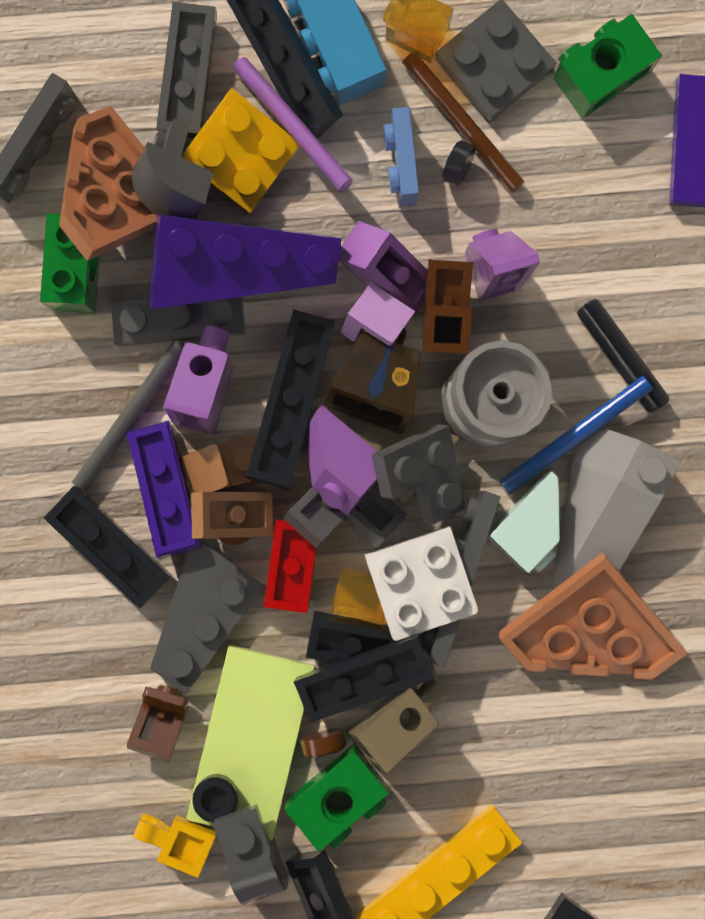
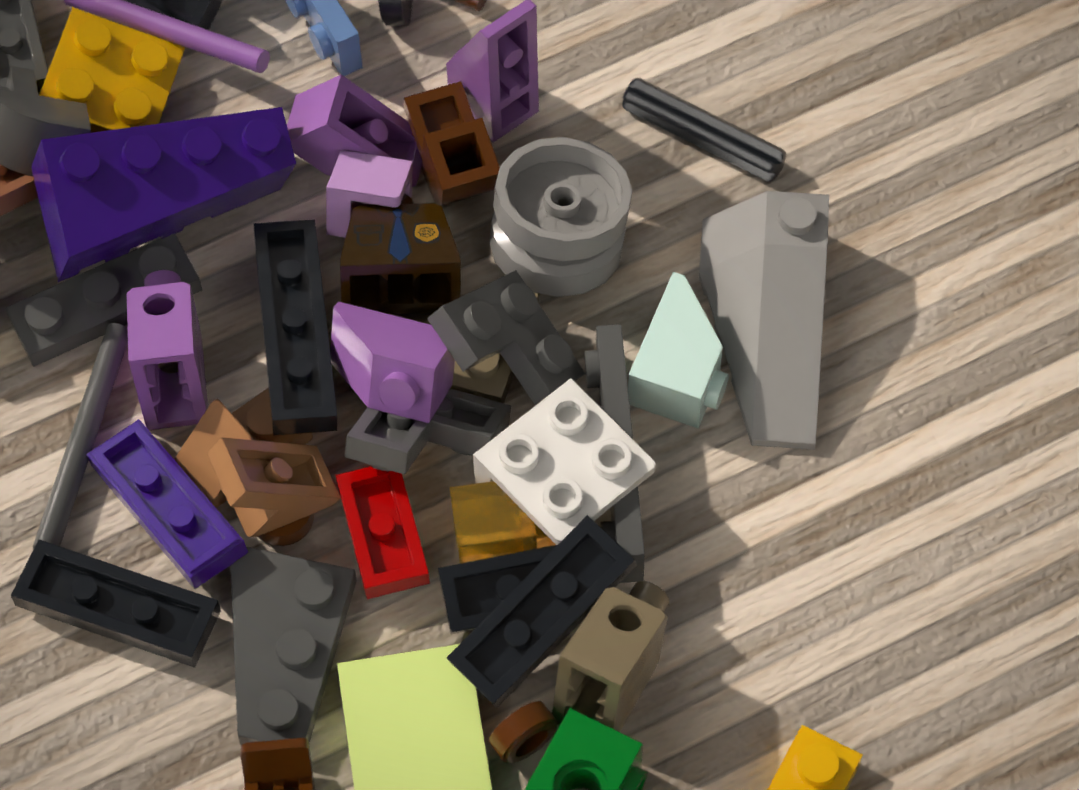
camera: 20 degrees left, 25 degrees down
(576, 434) = (686, 233): blue bar -> none
(593, 628) = (823, 443): nougat plate -> none

